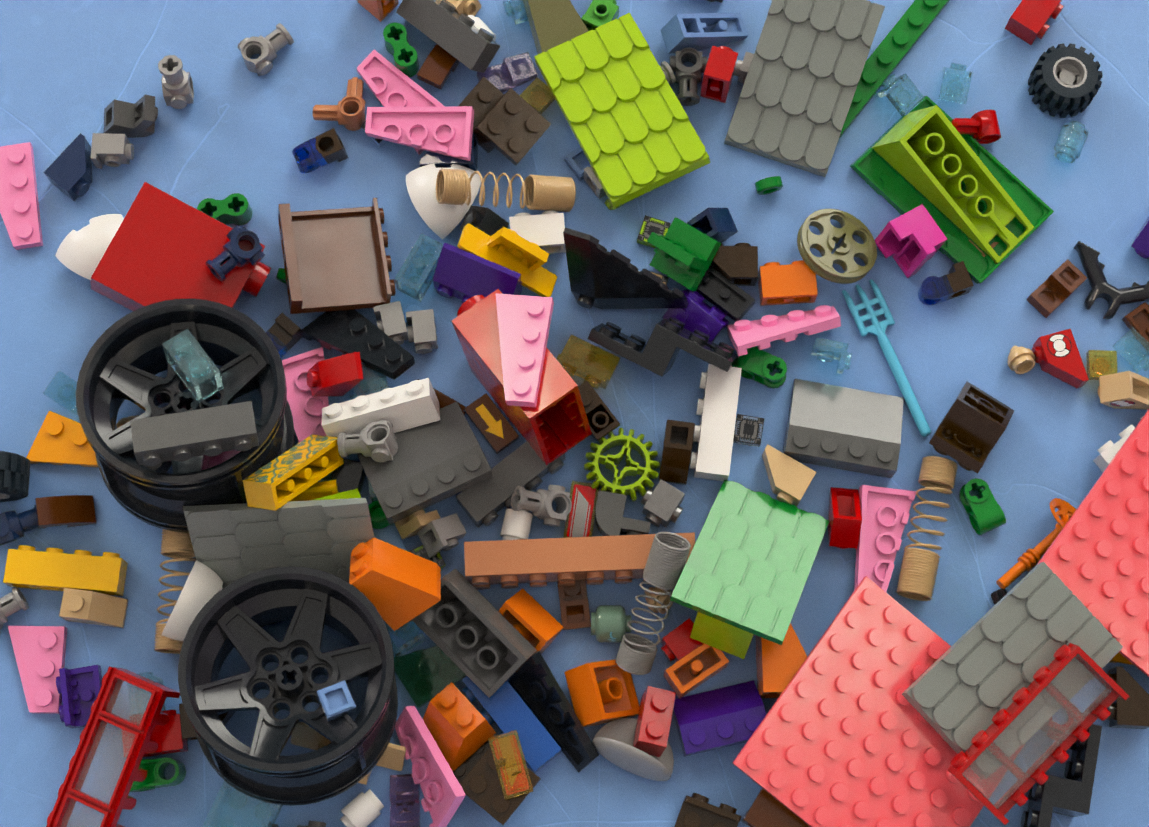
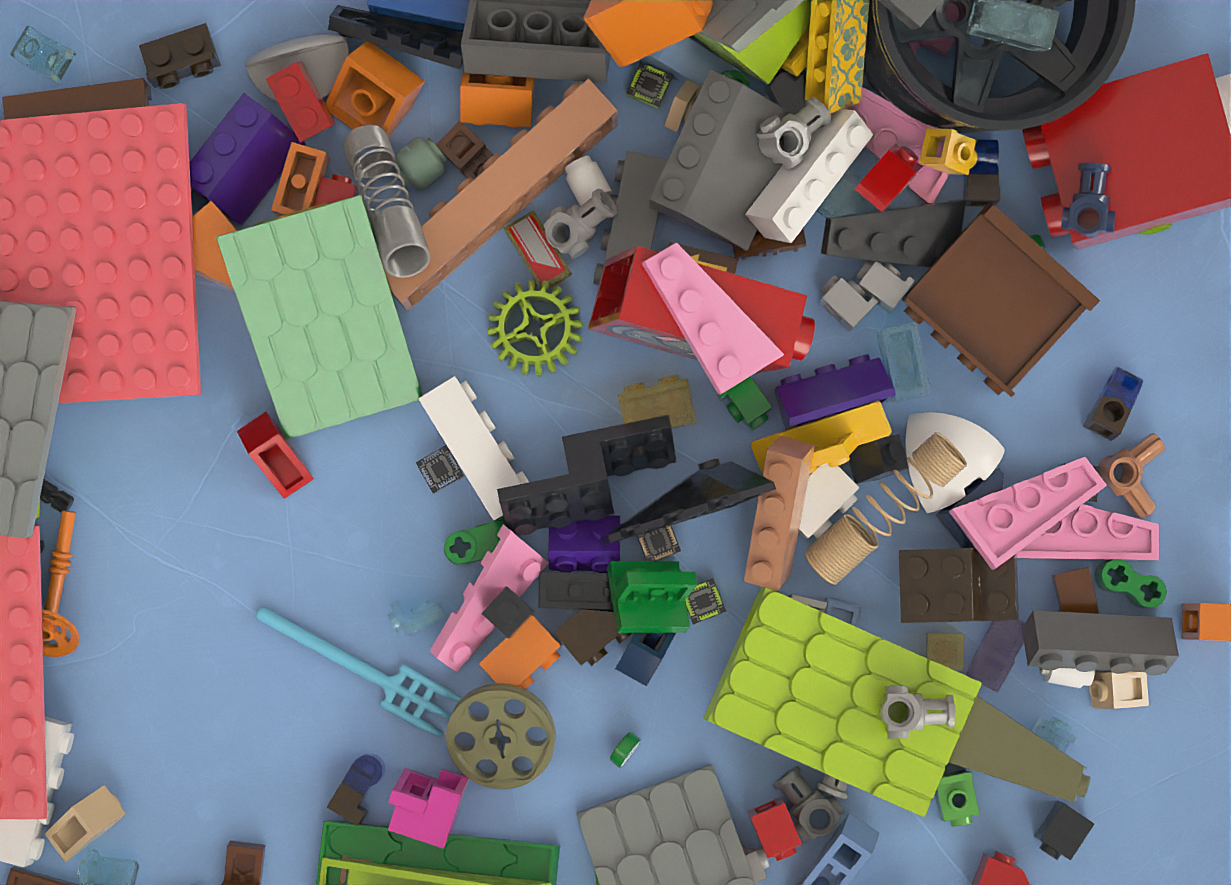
camera: 145 degrees right, 10 degrees up
(226, 209) = (1153, 260): green axle -> none
(288, 355) = (957, 153): none -> yellow brick
(441, 534) = (650, 114): light grey brick -> none
(551, 243) = (779, 513): none -> nougat brick
(586, 63) = (916, 711): none -> light grey connector
(598, 415) = (606, 354): dark brown slope -> none
(610, 516) = (498, 262): dark grey brick -> none
(662, 504) = (463, 321): flat silver brick -> none
(676, 451) = (491, 384): dark brown slope -> none
(777, 303) = (508, 612): none -> black brick
(786, 475) = (360, 449): tan slope -> none
(844, 428) = (346, 549): slope -> none
(883, 521) = (234, 482): bright pink wing -> none
(918, 564) = (160, 466): tan piece -> none
(971, 427) = (214, 649): dark brown bracket -> none
(982, 509) = (143, 574): green piece -> none
(1021, 359) = (221, 770): tan plate -> none
(1060, 357) = (182, 805): red slope -> none
(1101, 363) = (134, 831): clear yellow plate -> none

